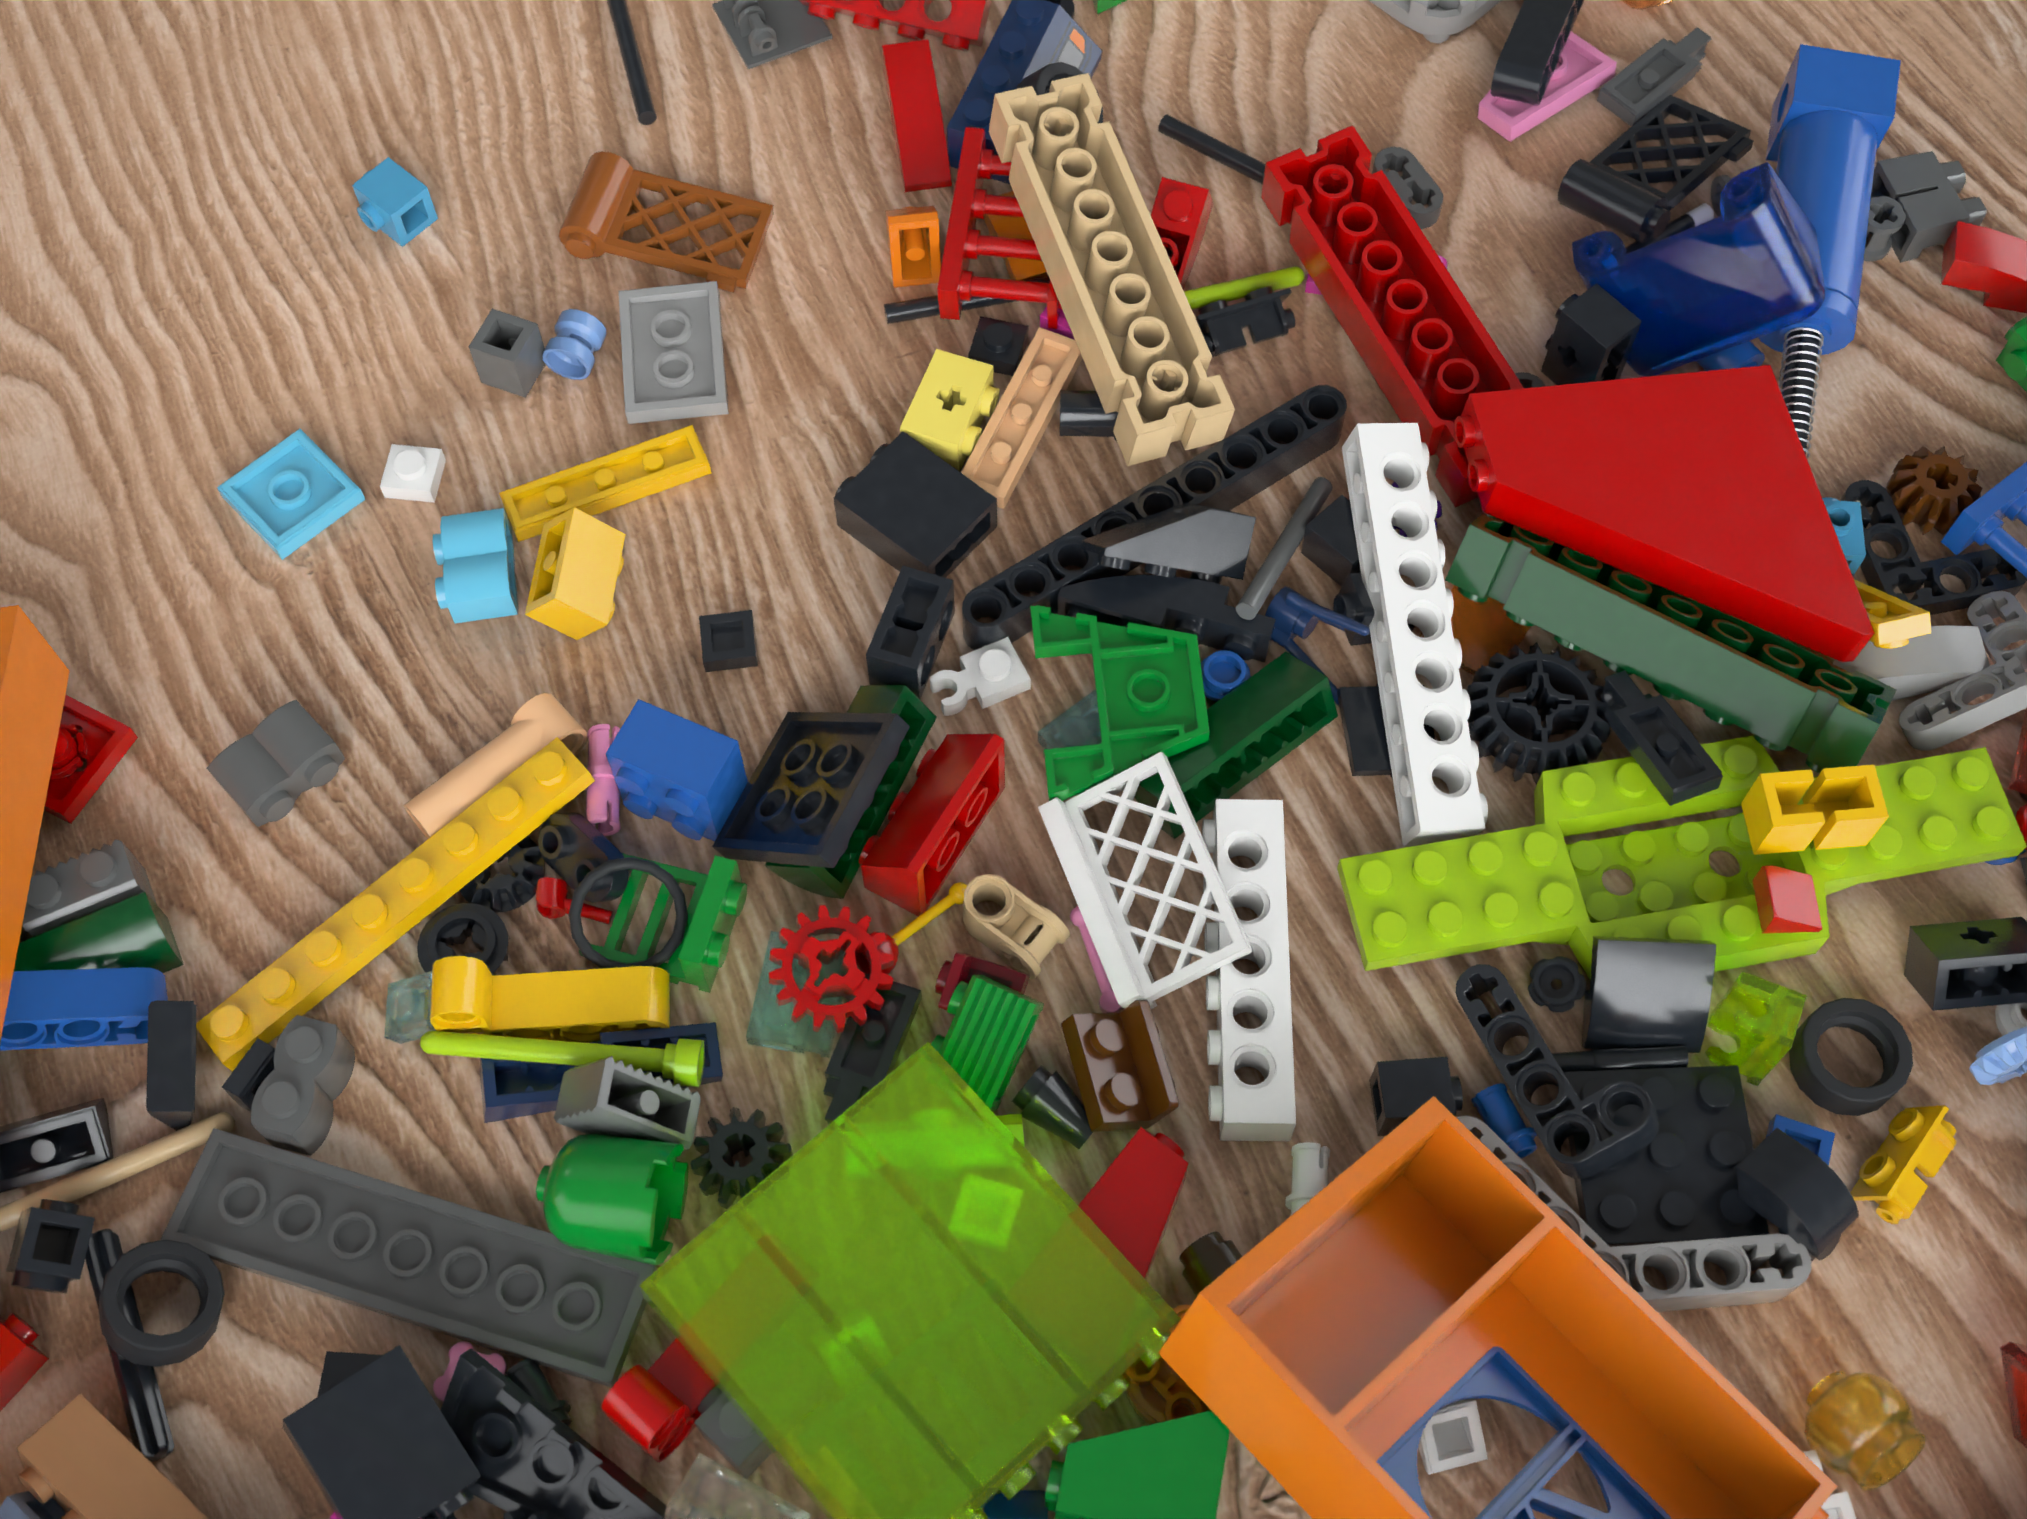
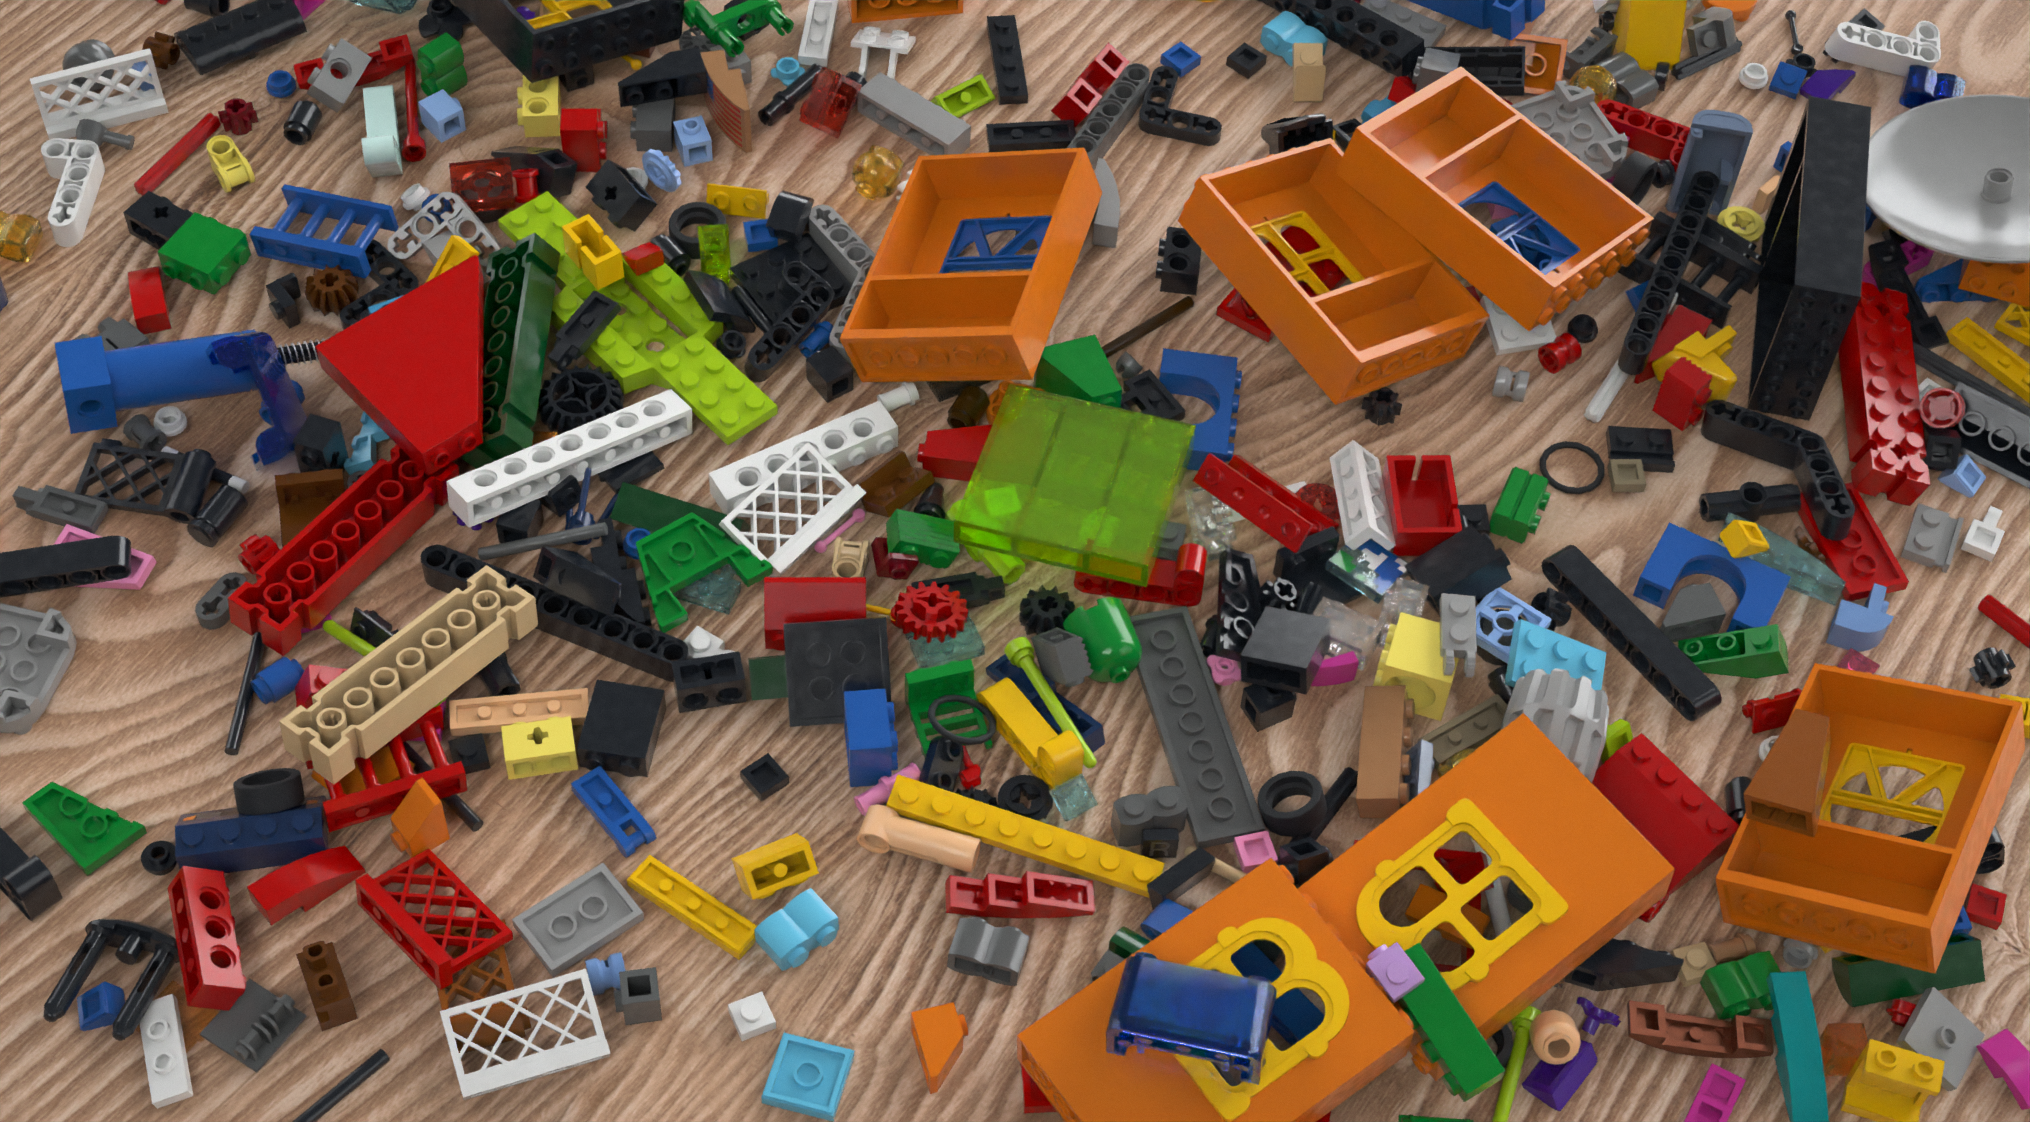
camera: 125 degrees left, 10 degrees down
(142, 1206) = (1254, 850): none -> bright pink plate
(209, 638) = (938, 1040): none -> orange slope
(326, 855) = (1020, 898): none -> red slope
(518, 215) = (534, 1065): none -> white fence
(761, 80) = (326, 985): none -> reddish brown hips
(767, 172) = (411, 937): none -> red fence
(798, 452) = (612, 810): none -> blue plate
(1234, 190) = (277, 680): none -> blue brick
(1454, 234) = (257, 552): none -> red gear
(1514, 311) = (305, 497): none -> reddish brown bracket
(1548, 217) = (217, 515): none -> black piece
(1812, 973) = (673, 254): none -> black brick
(1937, 422) = (282, 296): none -> black bracket

